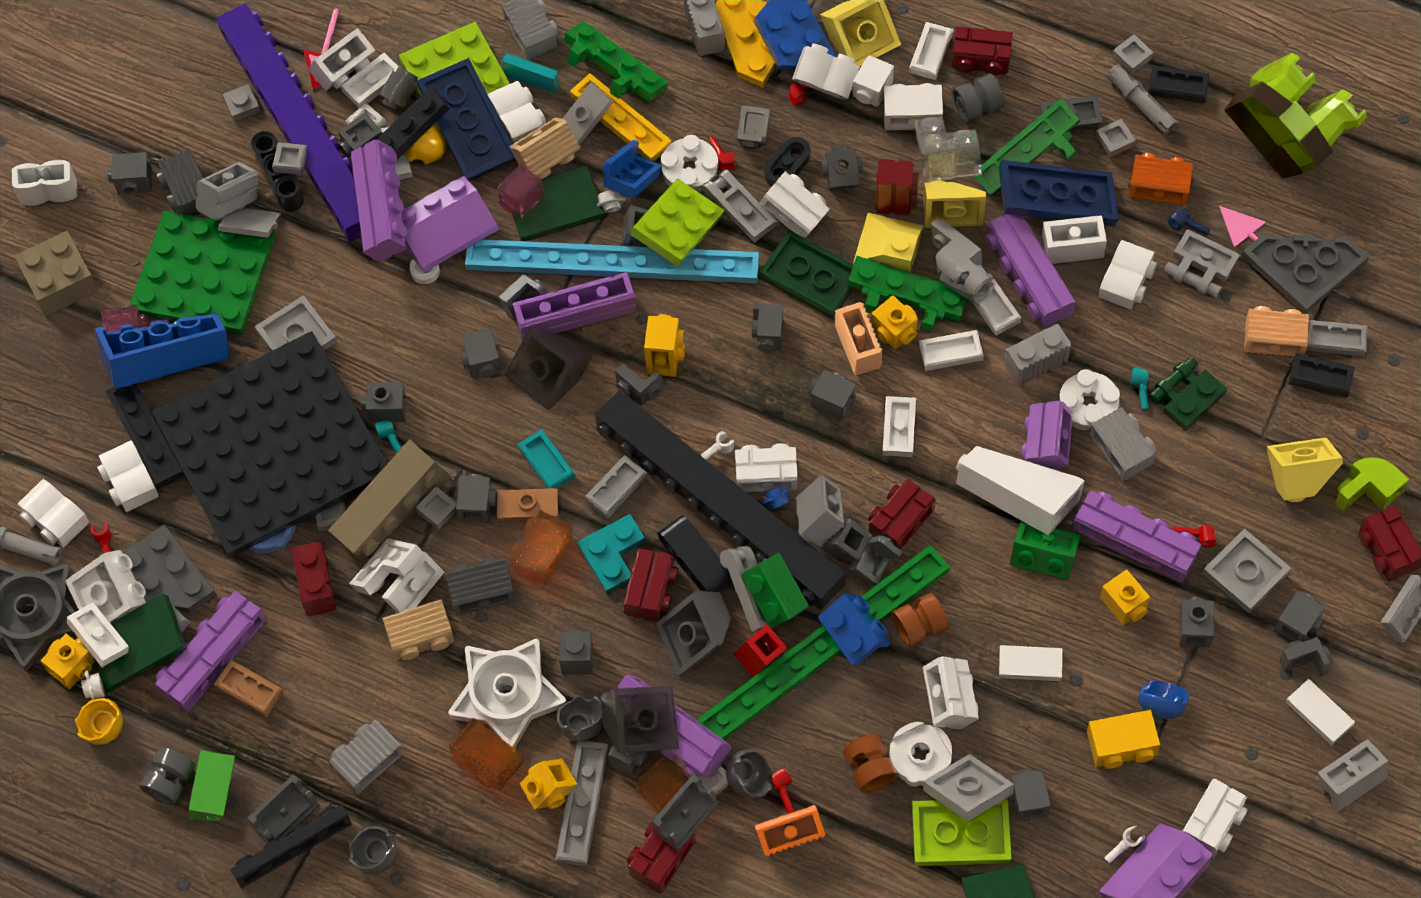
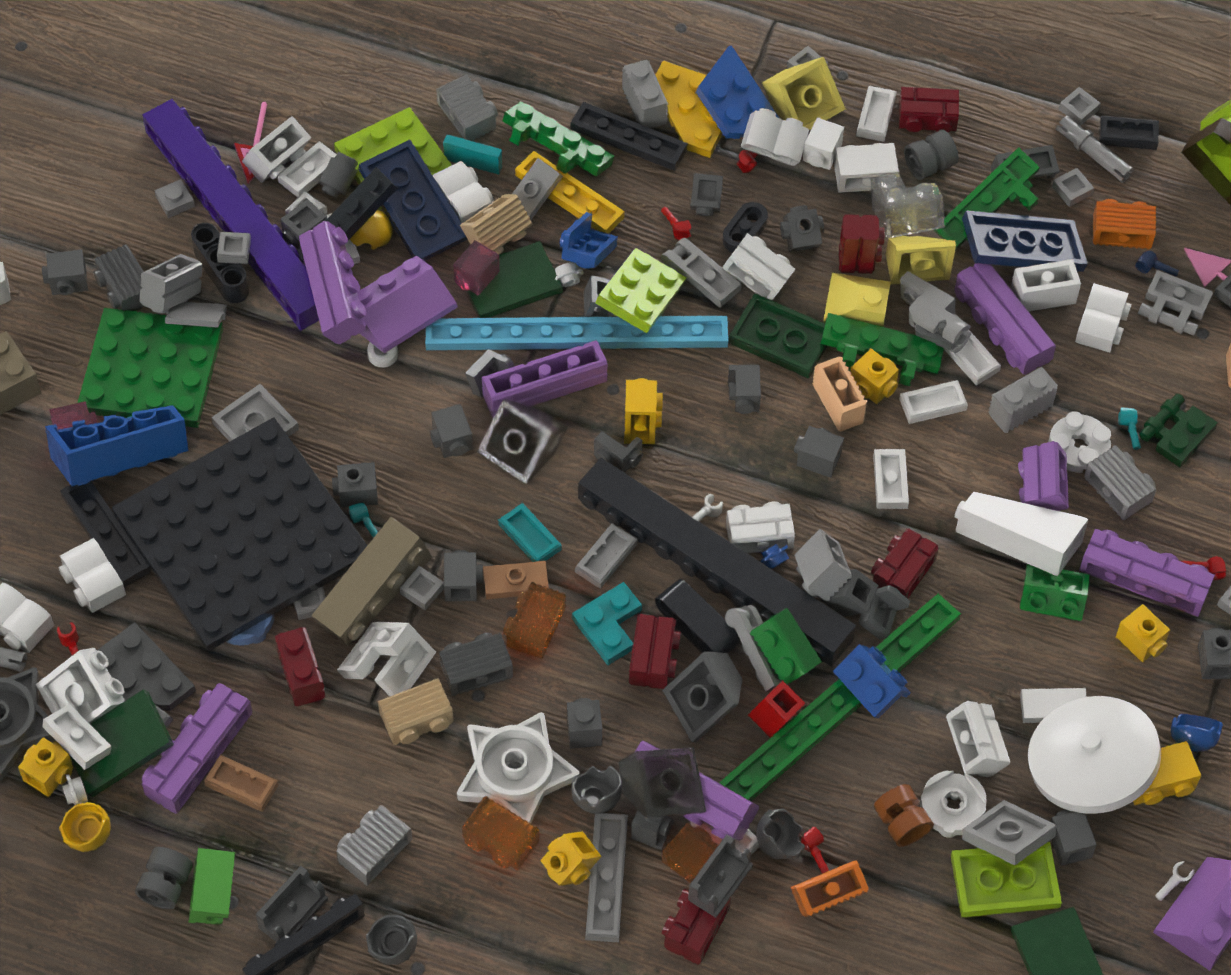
camera: 10 degrees left, 5 degrees down
(685, 62) = (629, 136): none -> black plate
(690, 149) = (645, 220): white plate -> none
(922, 618) = (934, 669): dark orange wheel -> none
(1059, 717) = (1094, 754): none -> white dish

